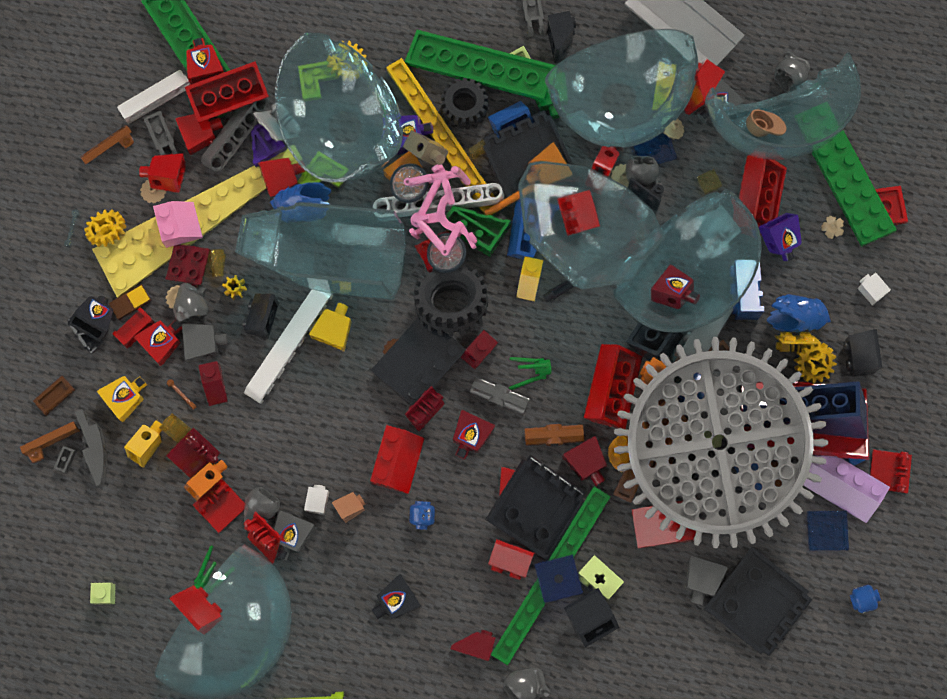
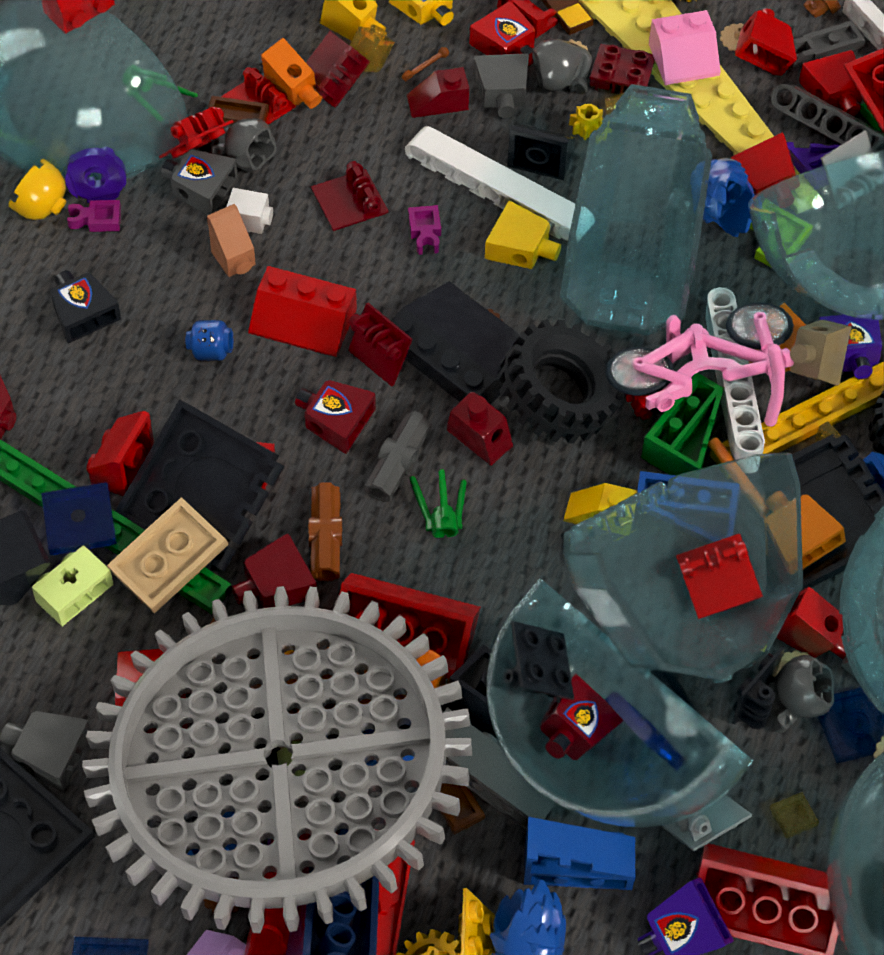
camera: 90 degrees right, 20 degrees down
(232, 515) = (239, 109): none -> reddish brown tile
(296, 601) = (100, 161): none -> dark purple plate
(301, 437) = (349, 198): none -> dark red hinge
(309, 637) = (40, 192): none -> yellow cylinder
(321, 387) = (425, 226): none -> magenta plate
(322, 596) = (99, 216): none -> magenta plate
(583, 522) = (167, 555): none -> tan plate
(656, 303) = (540, 662): none -> black hinge
(681, 252) = (645, 730): none -> clear blue tile

